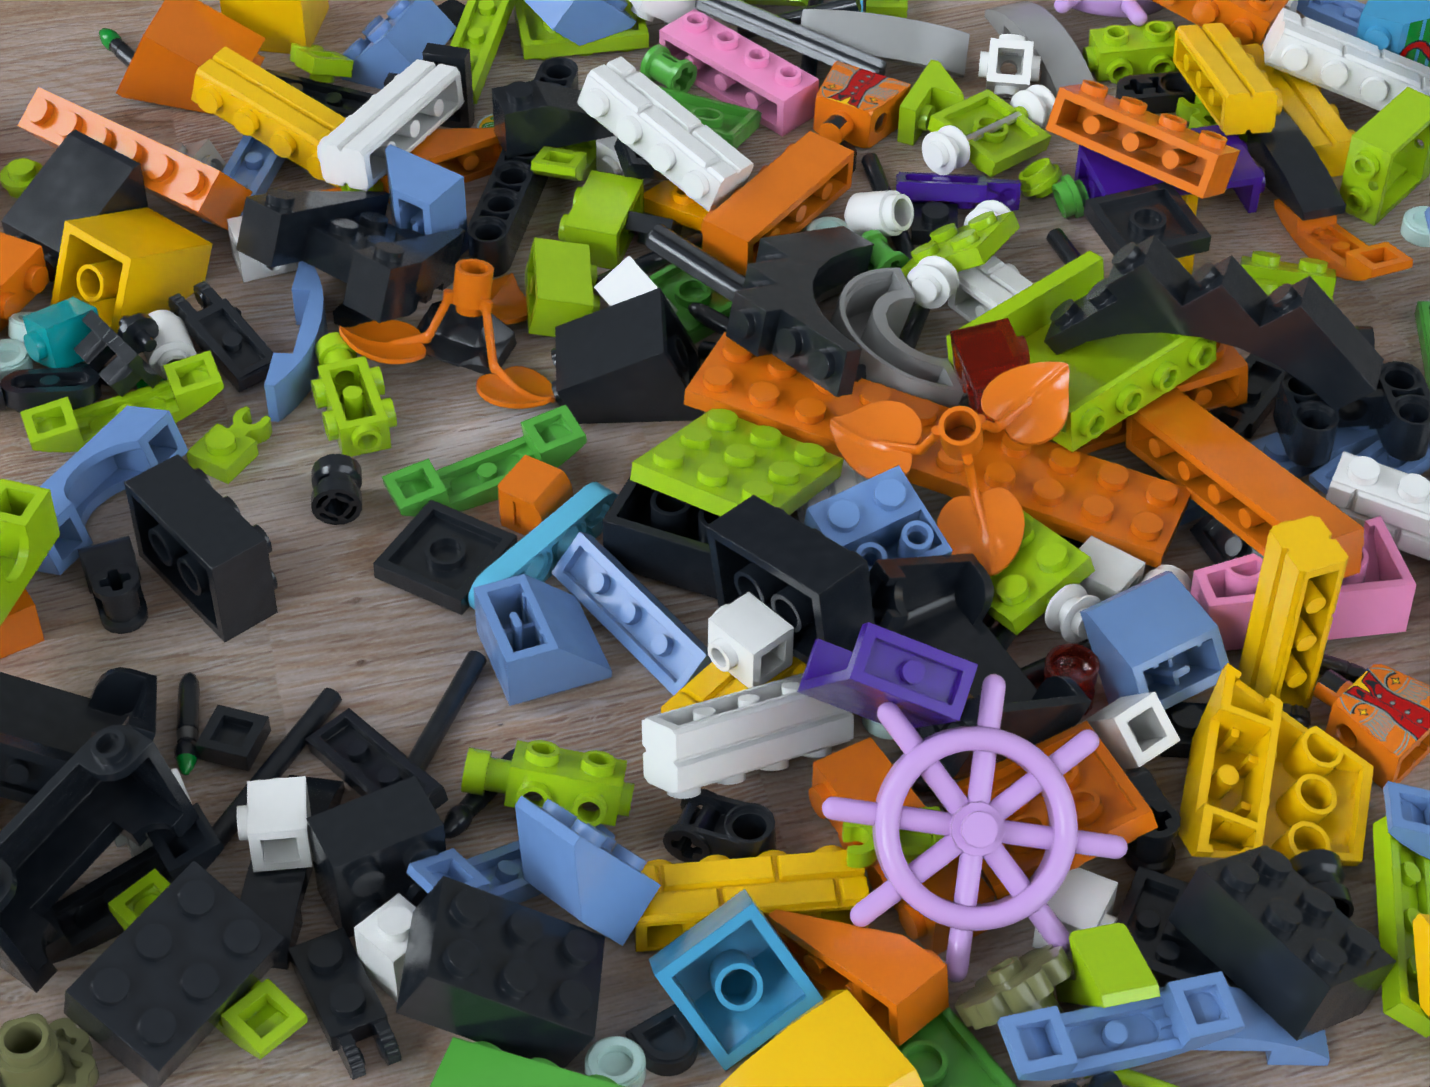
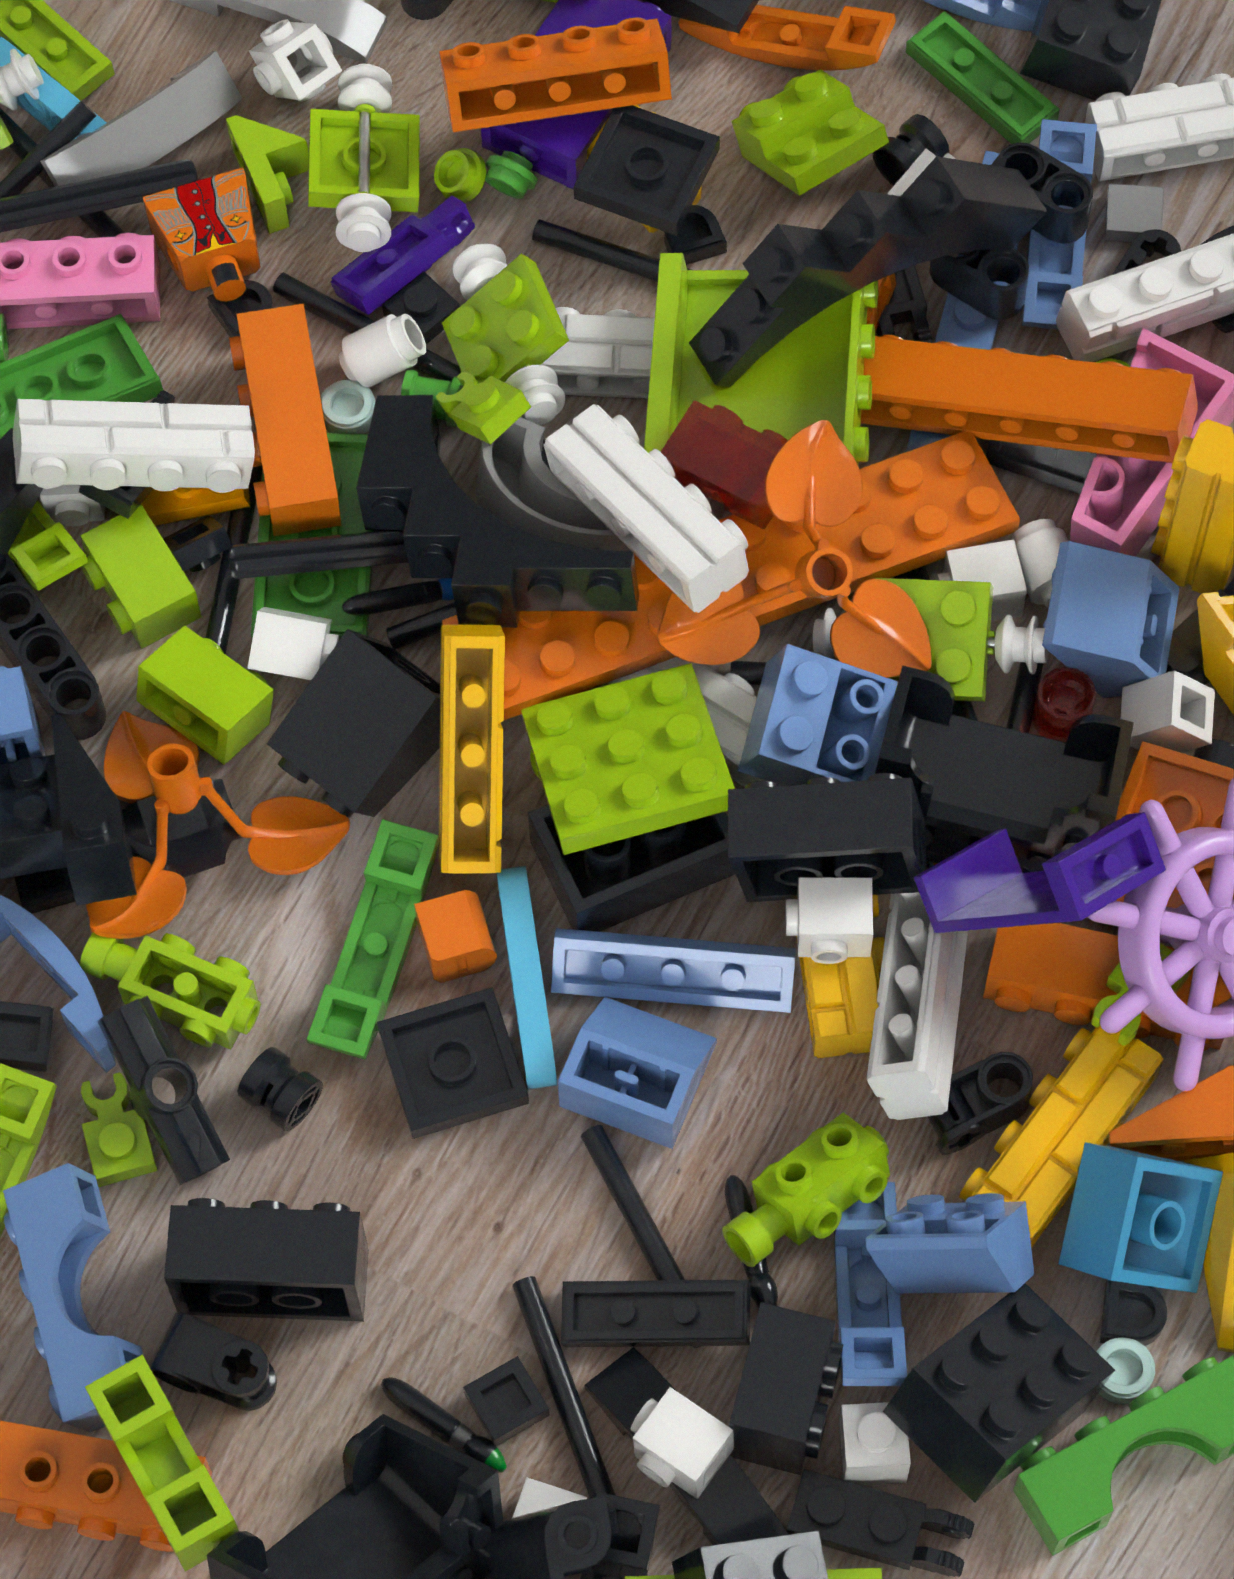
camera: 45 degrees left, 20 degrees up
(260, 454) = (146, 1053): none -> black piece
(651, 392) = (471, 748): none -> yellow brick
(889, 255) = (484, 408): none -> lime plate
(909, 348) = (648, 507): none -> white brick

